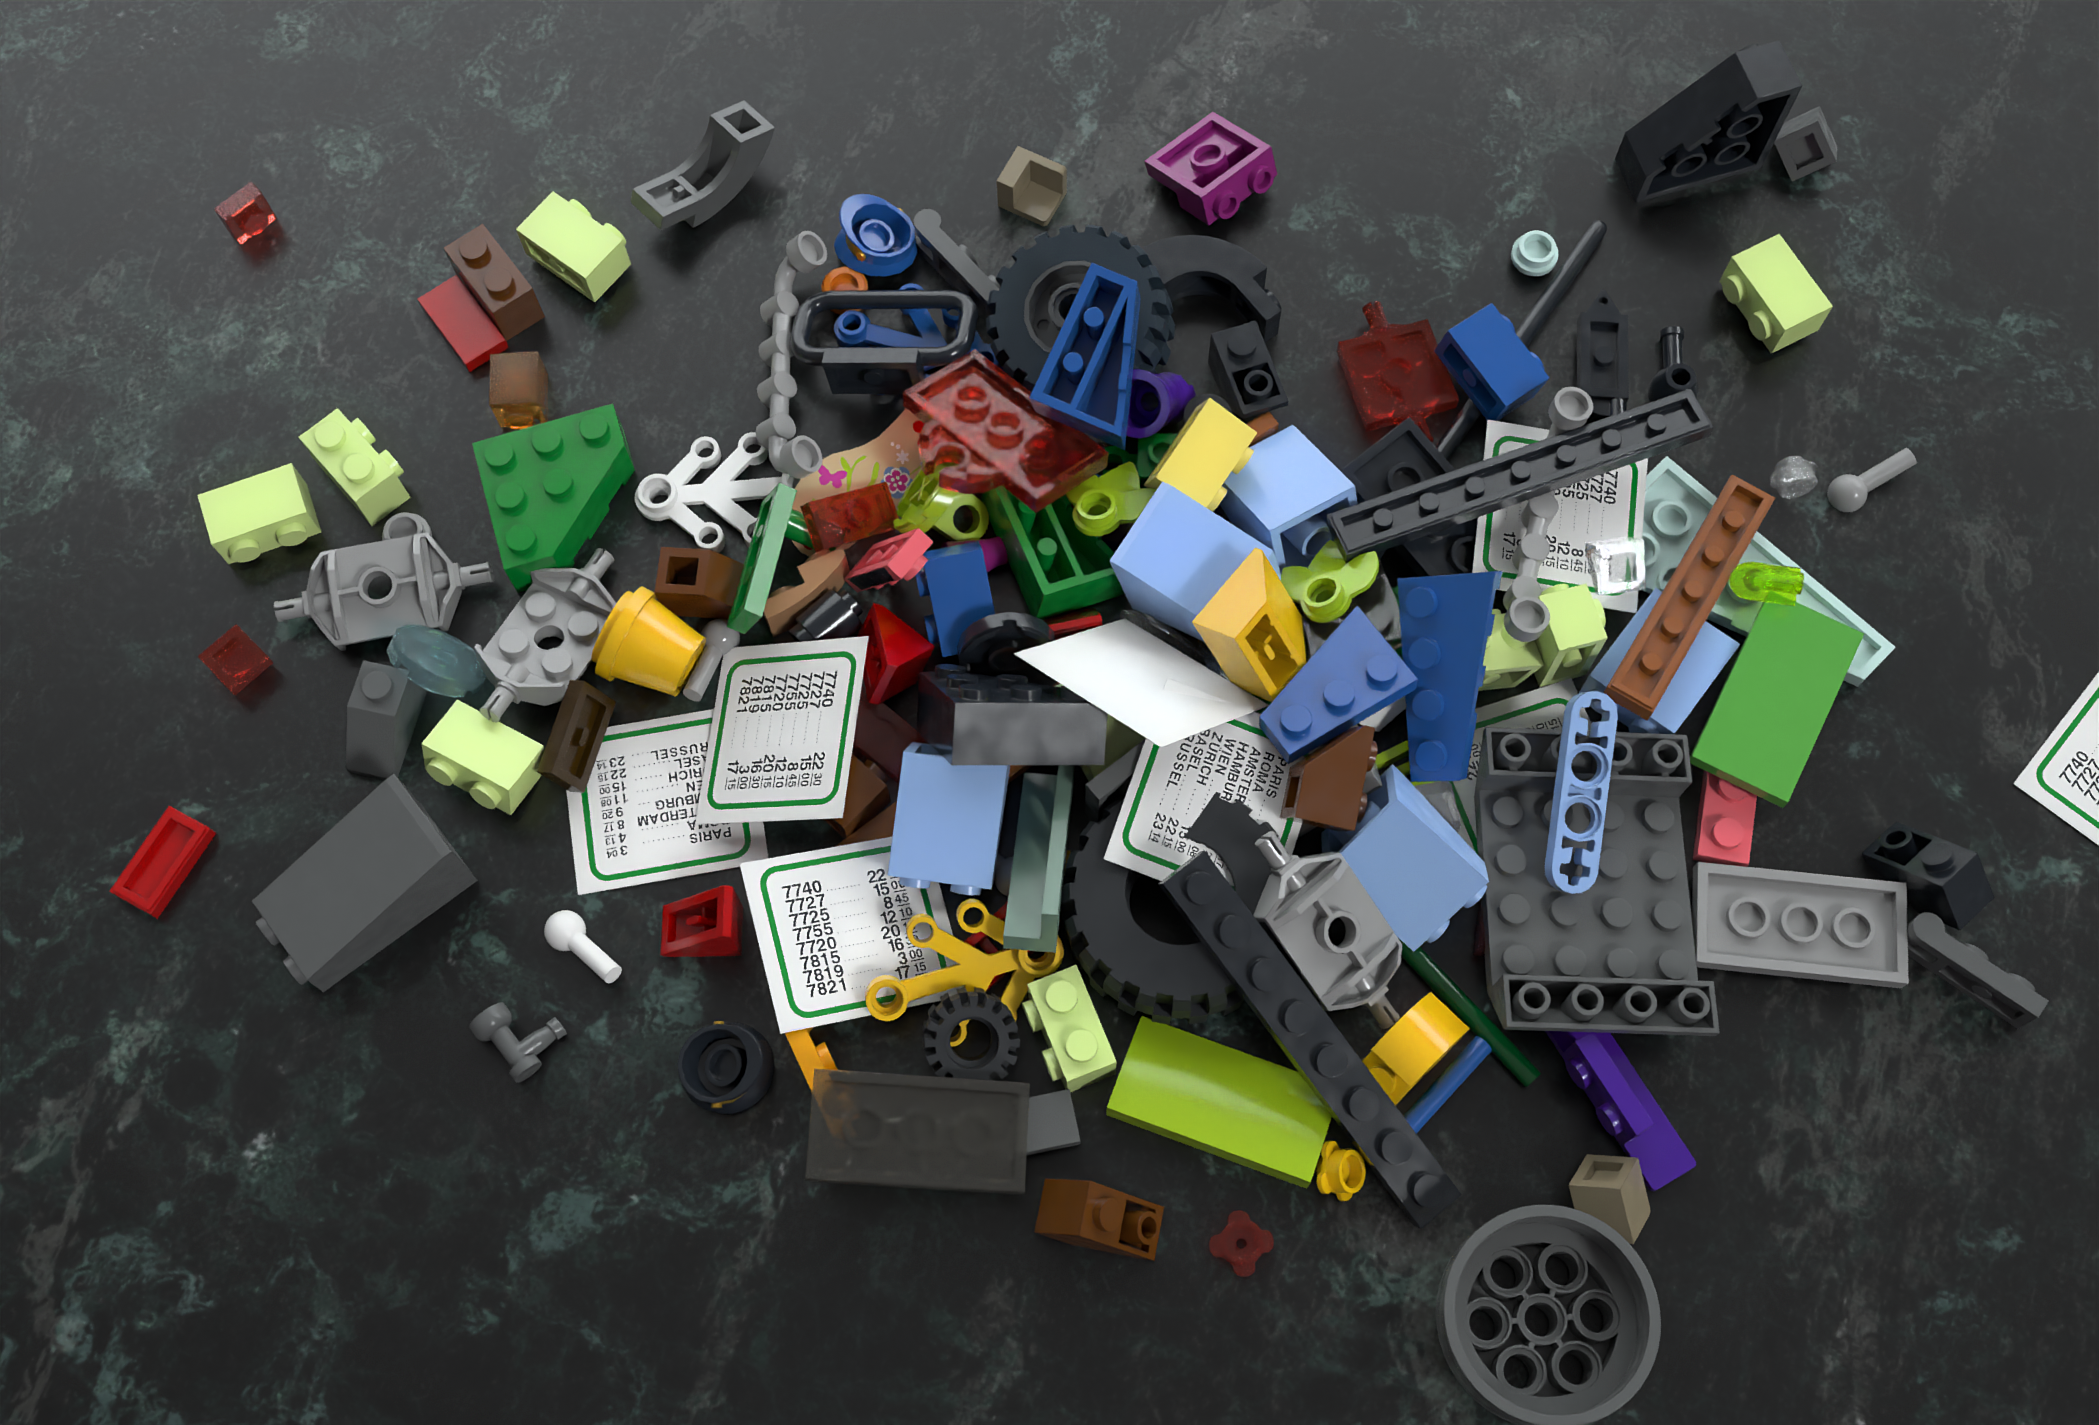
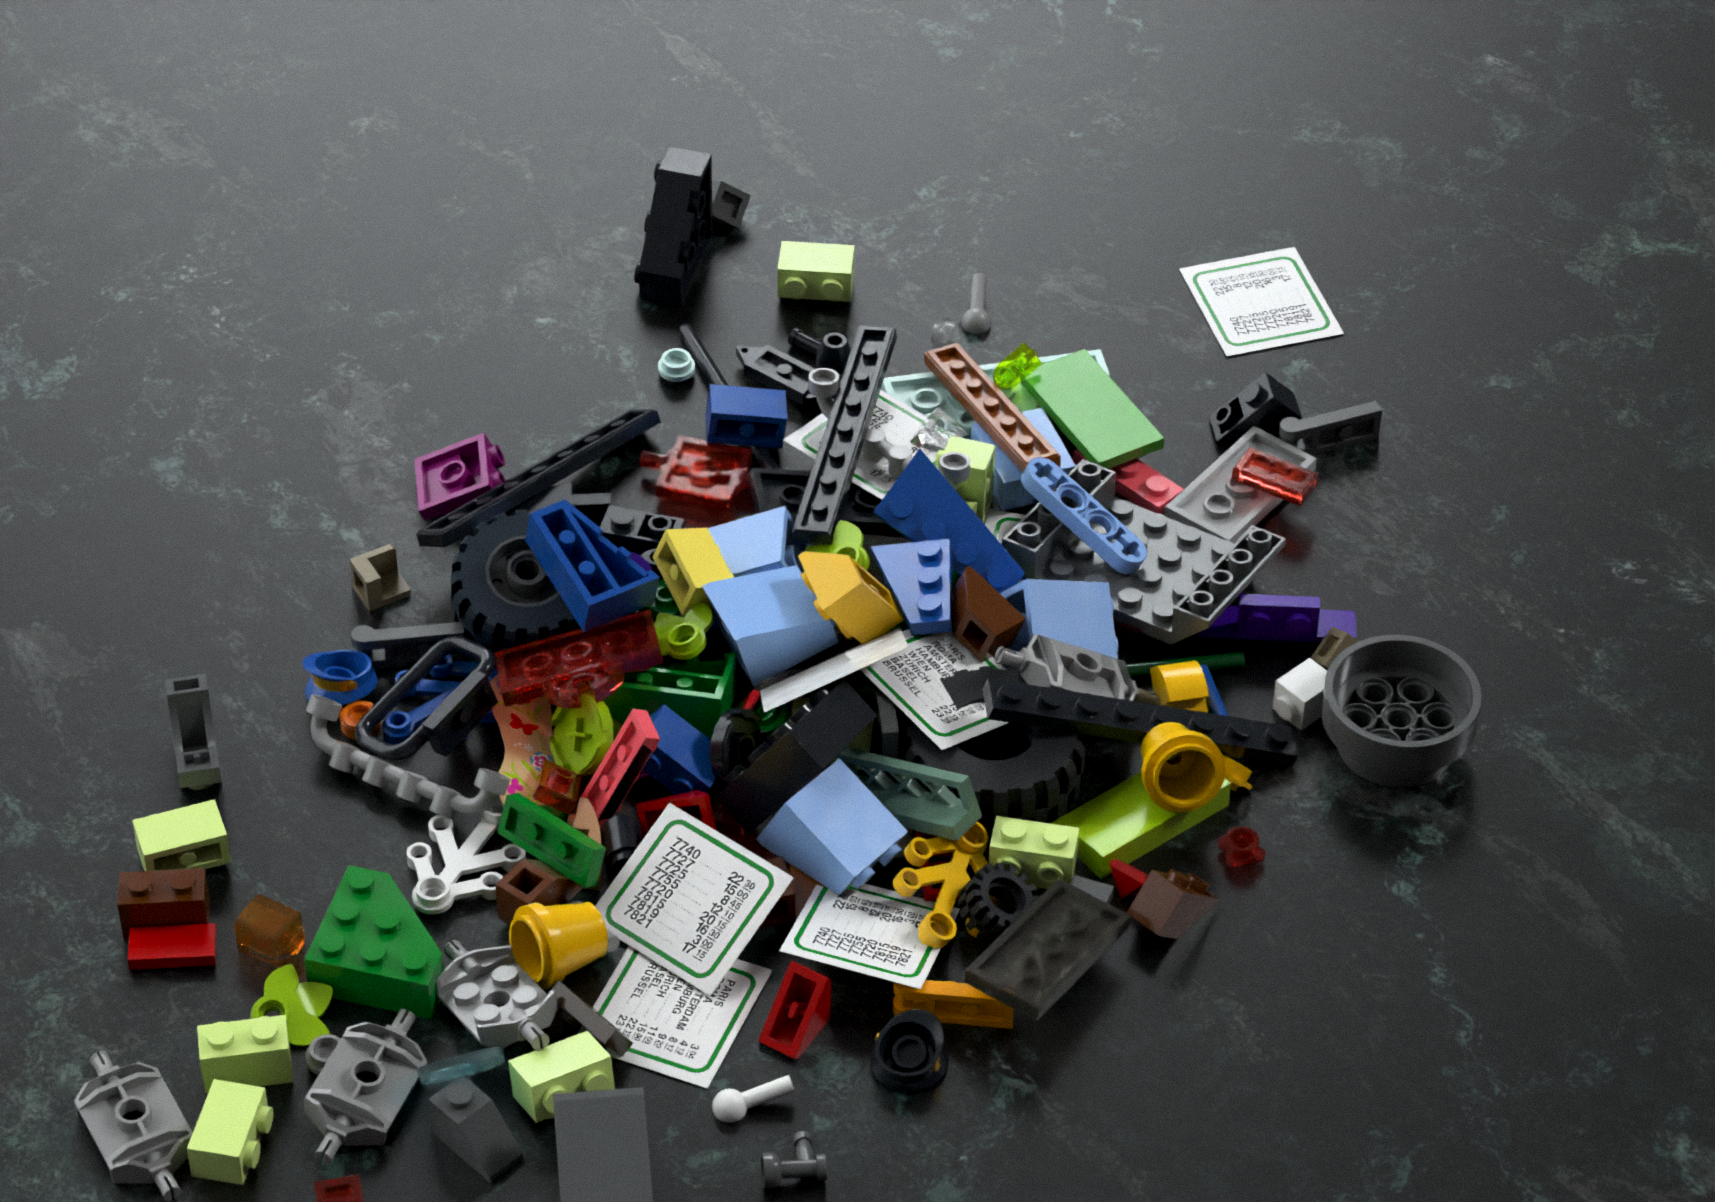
camera: 60 degrees left, 25 degrees down
(215, 459) = (139, 1148): none -> light grey plate
(446, 470) = (298, 1001): none -> lime plate
(1117, 1151) = (1127, 878): none -> red slope
(1256, 234) = (537, 477): none -> black tile
(1268, 1118) = (1189, 777): none -> yellow piece
(1515, 1179) = (1300, 694): none -> white brick
(1828, 958) = (1275, 476): none -> clear red plate

